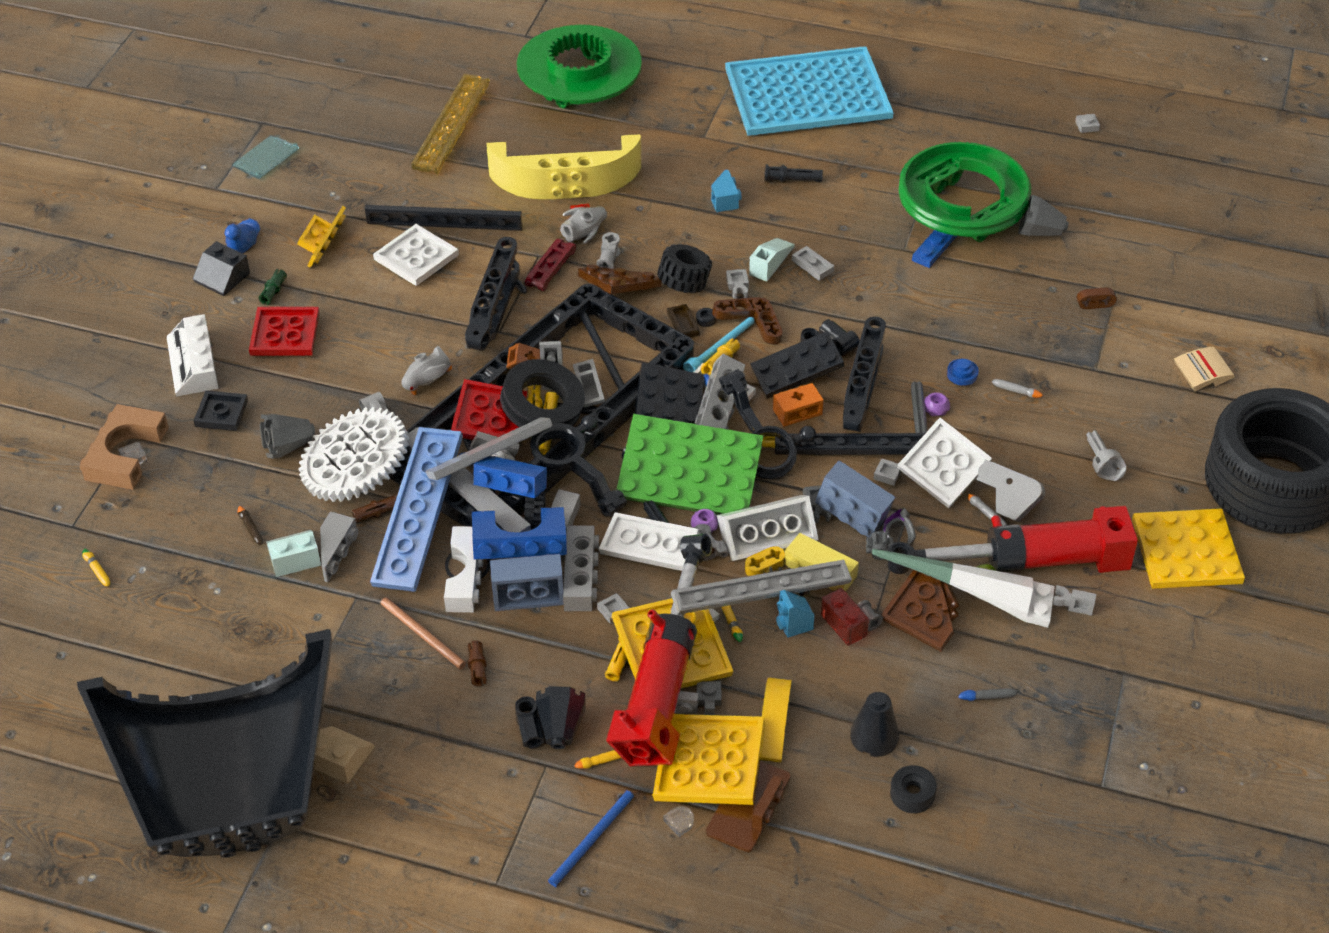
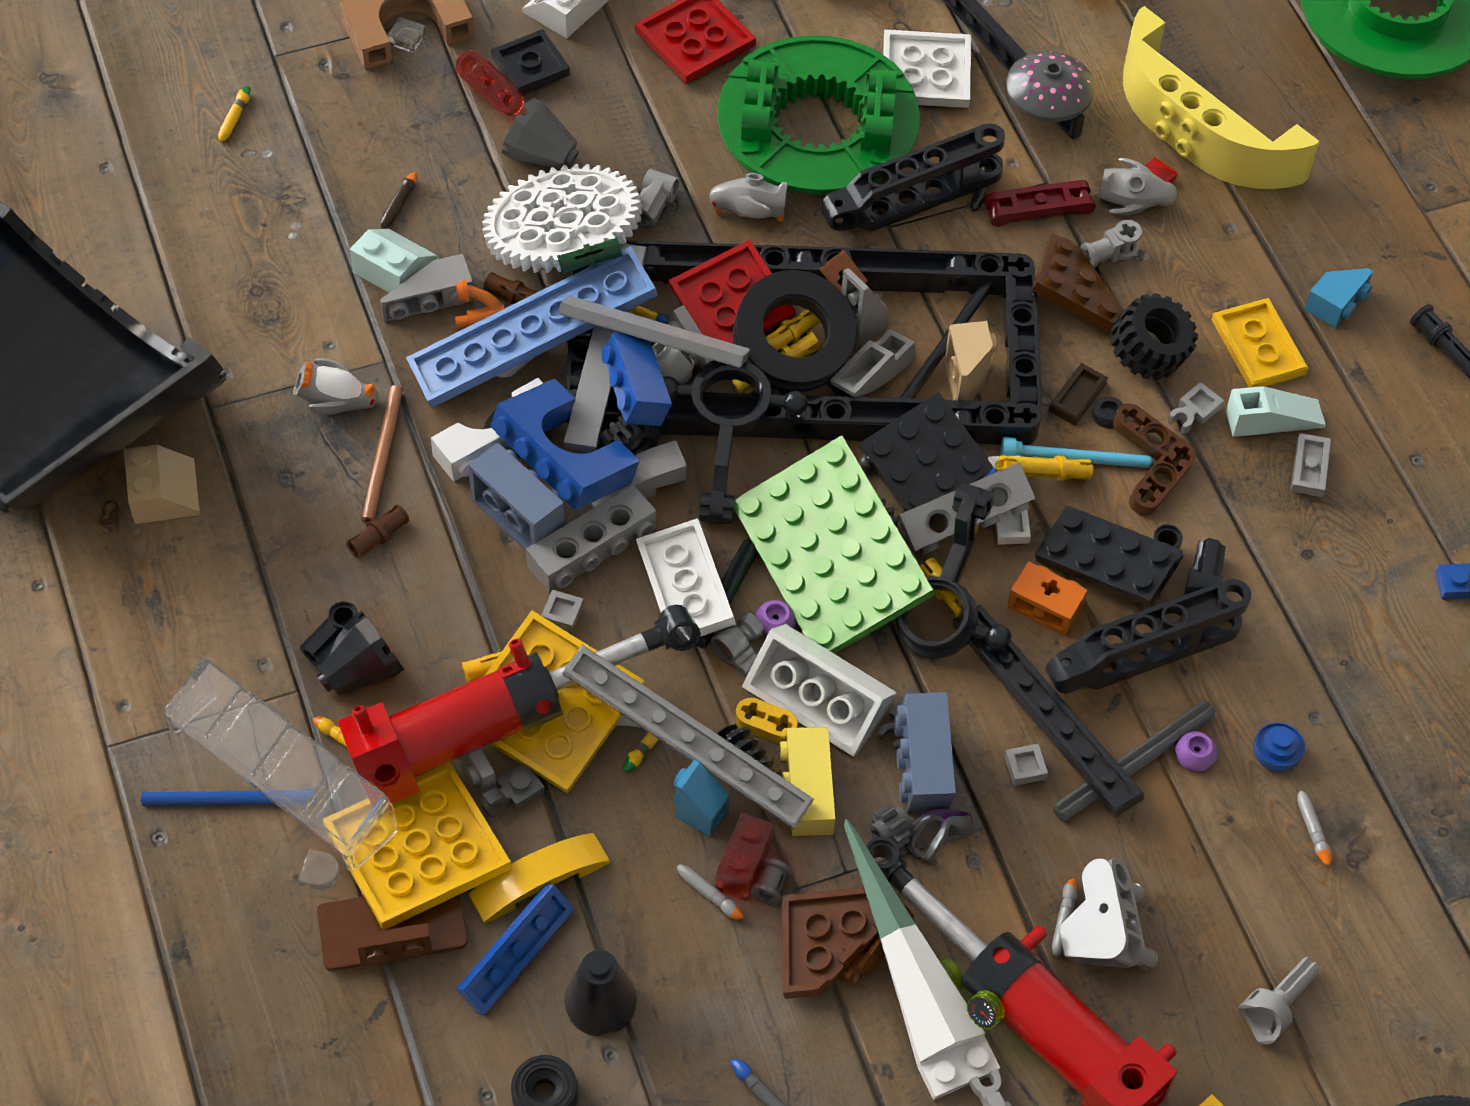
camera: 50 degrees right, 10 degrees up
(206, 433) = (482, 78): none -> clear red plate
(357, 626) = (333, 388): none -> animal
(360, 298) = (814, 67): none -> green piece
(376, 534) = (475, 315): none -> orange plant
(413, 436) = (589, 255): none -> dark green pin
(489, 211) = (1050, 86): none -> dark grey dish
(602, 785) = (283, 763): none -> clear piece
(627, 344) = (969, 358): none -> tan slope
(722, 238) = (1259, 343): none -> yellow tile
(814, 752) = (515, 949): none -> blue plate
(865, 644) = (709, 891): none -> light grey piece
(943, 462) = (1084, 815): white plate -> none
(1024, 565) = (985, 1009): none -> tile

